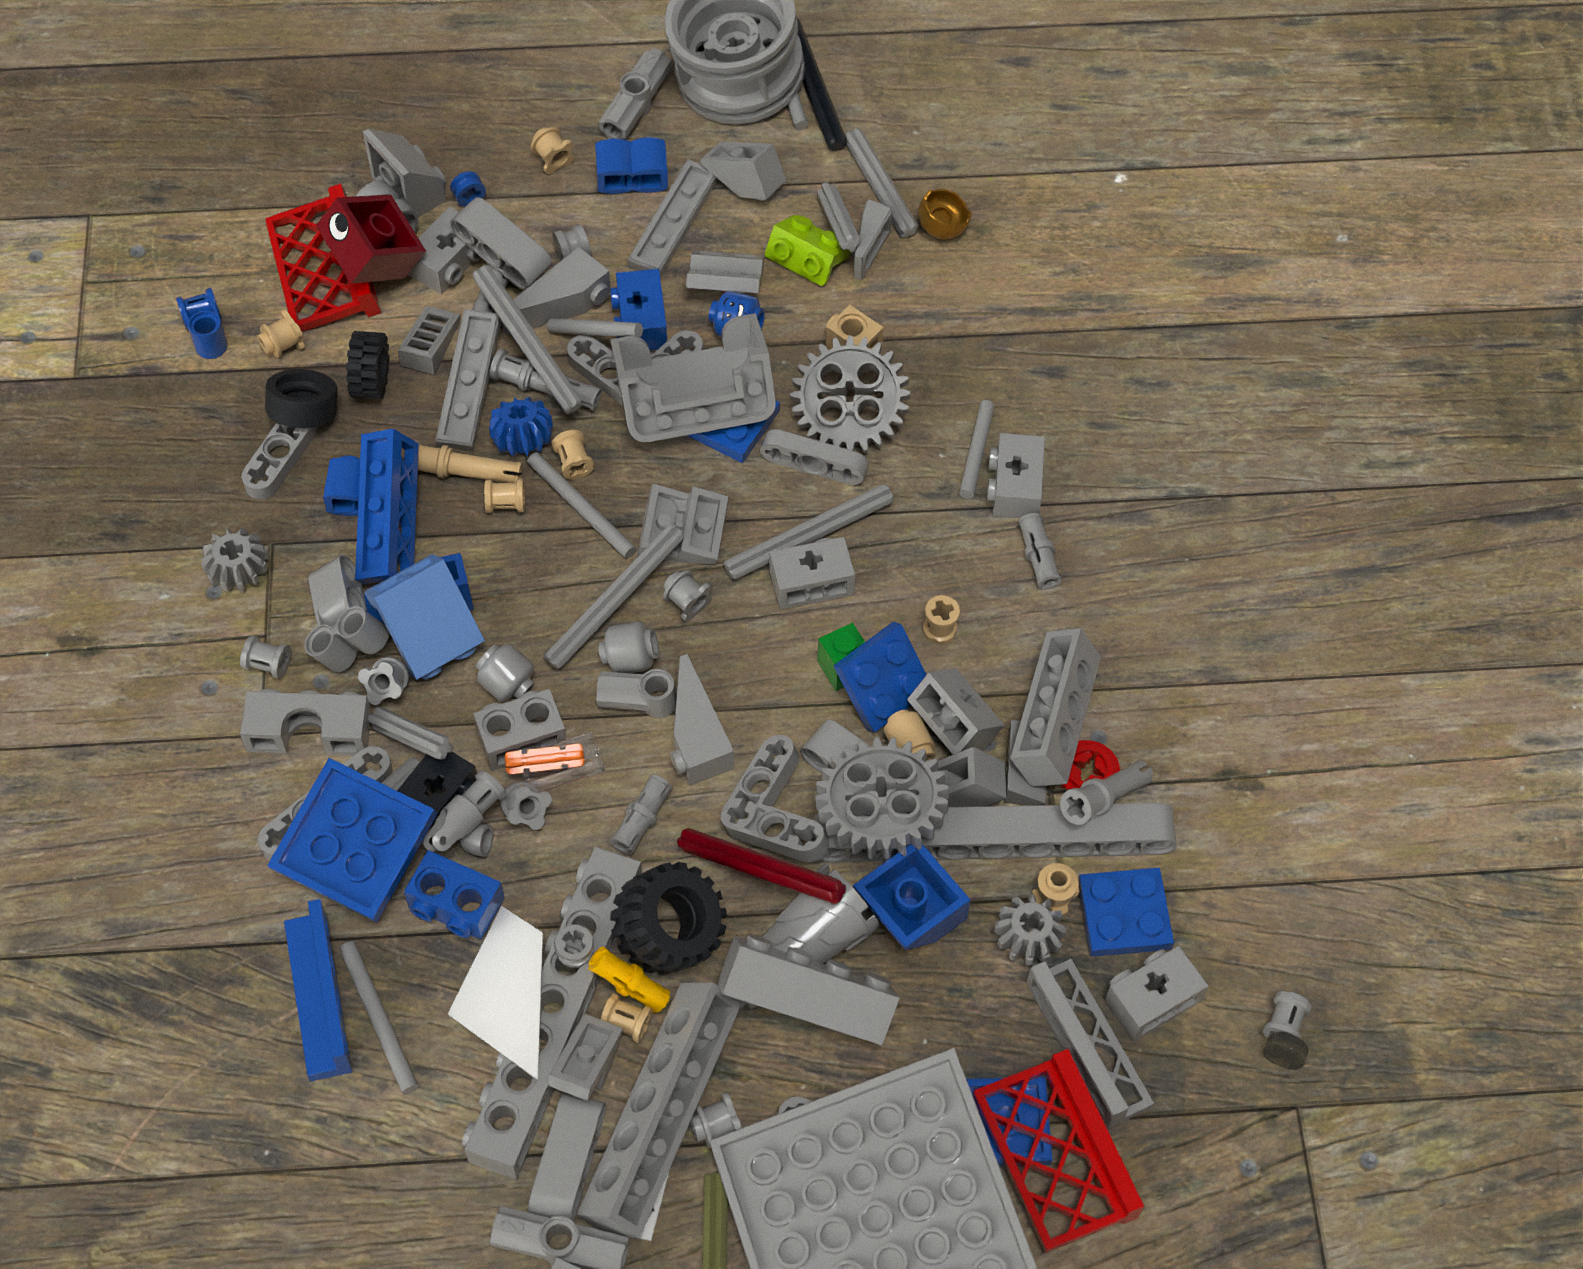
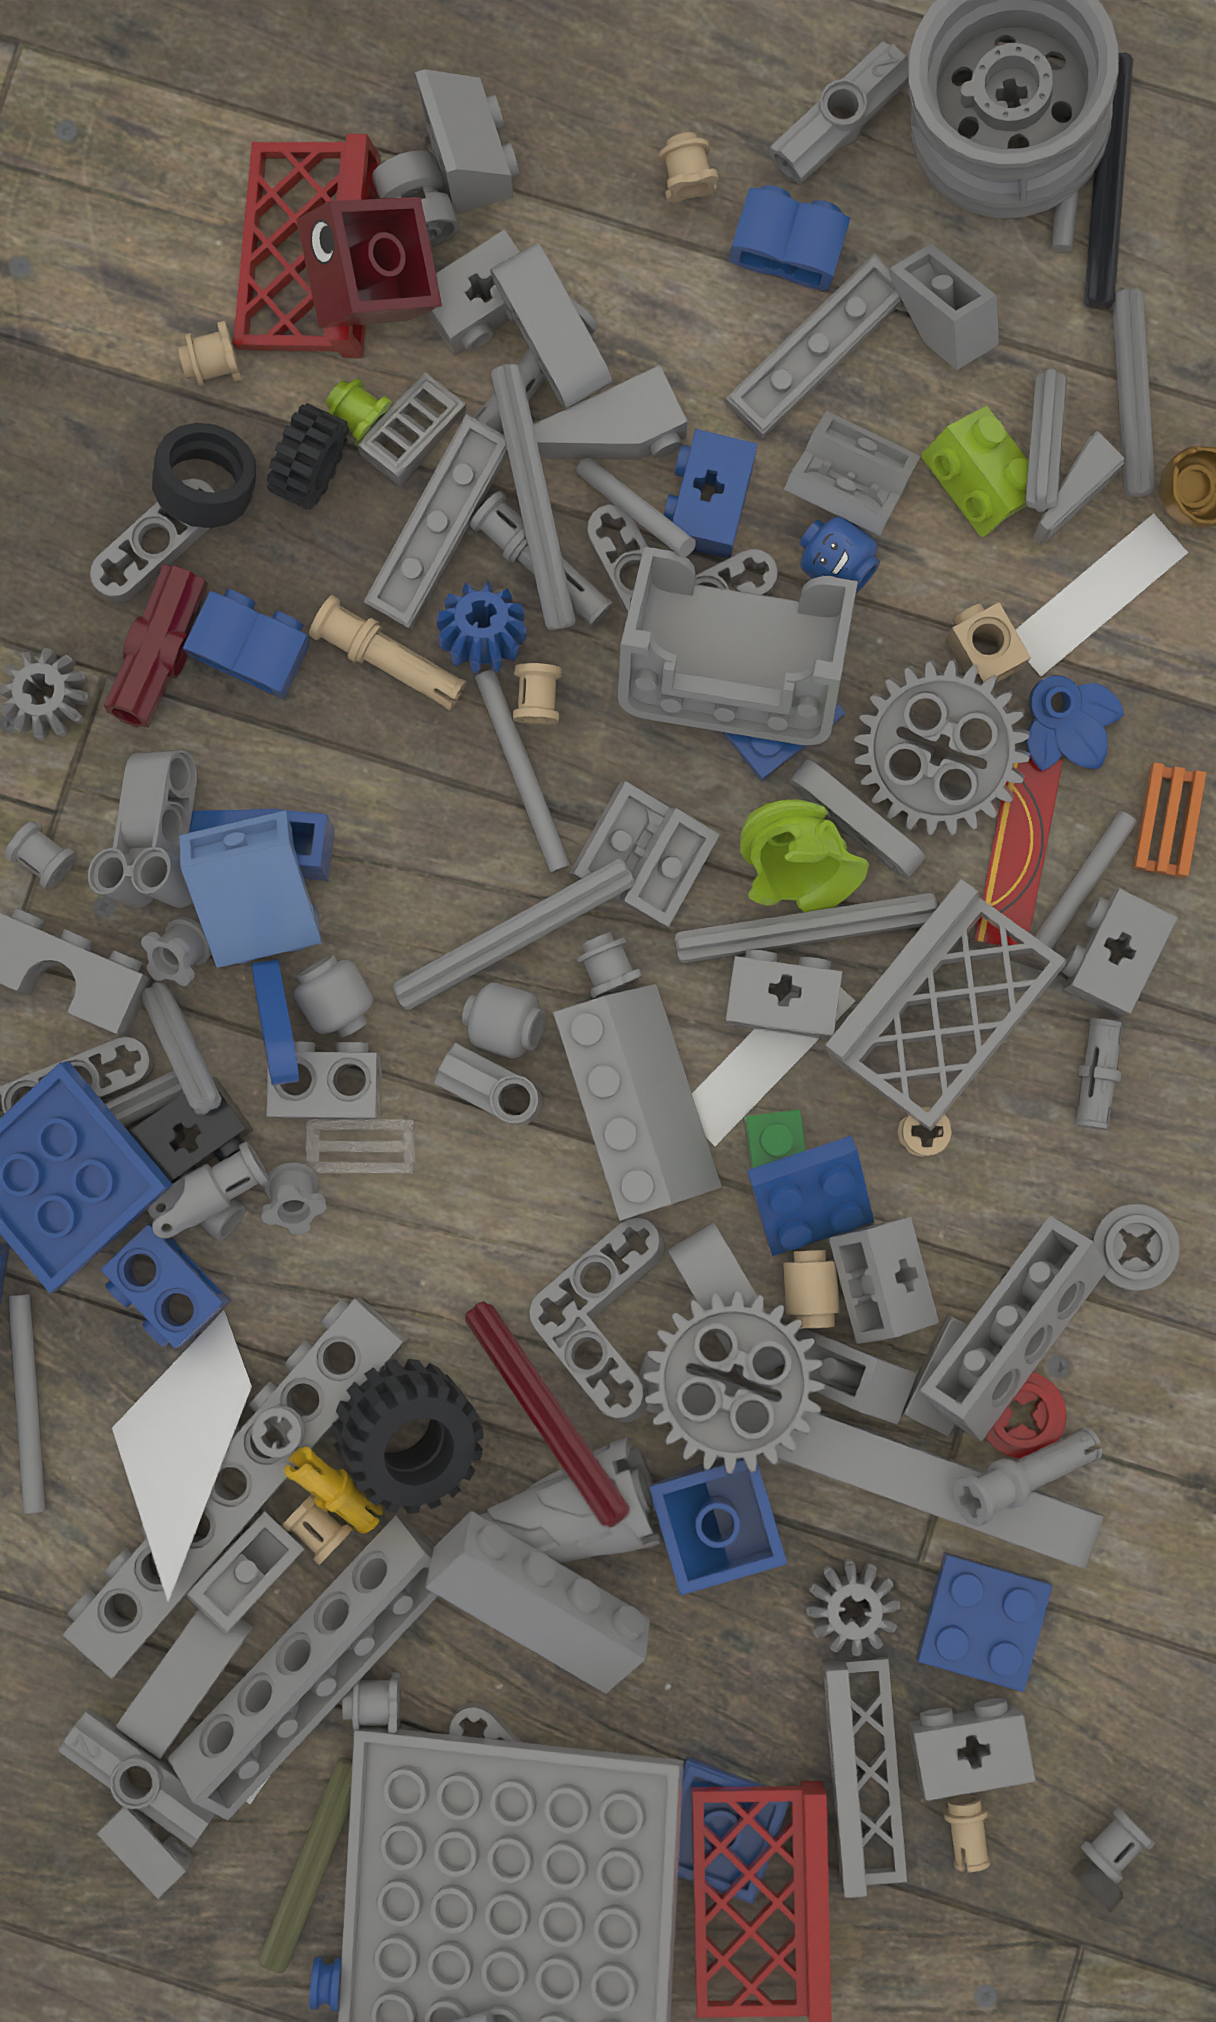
camera: 30 degrees right, 25 degrees up
(204, 324) = (115, 285): blue piece -> none
(303, 507) = (155, 646): none -> dark red piece
(383, 506) = (252, 701): blue fence -> none
(394, 331) = (356, 407): none -> lime brick
(467, 187) = (546, 195): blue bush -> none
(471, 691) = (275, 1022): none -> blue beam
(504, 496) = (424, 725): tan bush -> none
(544, 759) = (338, 1144): axle -> none
(568, 241) = (656, 346): light grey wheel -> none
(641, 814) = (434, 1261): light grey pin -> none
(699, 738) = (544, 1178): light grey slope -> none
(738, 669) = (637, 1100): none -> light grey slope
(787, 483) = (799, 856): none -> lime helmet
(800, 646) = (750, 1074): none -> white sticker
(887, 536) = (906, 978): none -> light grey fence
(911, 292) = (1099, 593): none -> white sticker
(928, 450) = (1019, 849): none -> red sticker
(929, 364) = (1074, 730): none -> blue plate
(1009, 374) = (1191, 816): none -> orange tile
(1059, 895) = (908, 1545): tan brick -> none
(1130, 641) = (1161, 1246): none -> light grey gear
(1180, 1051) = (968, 1832): none -> tan pin

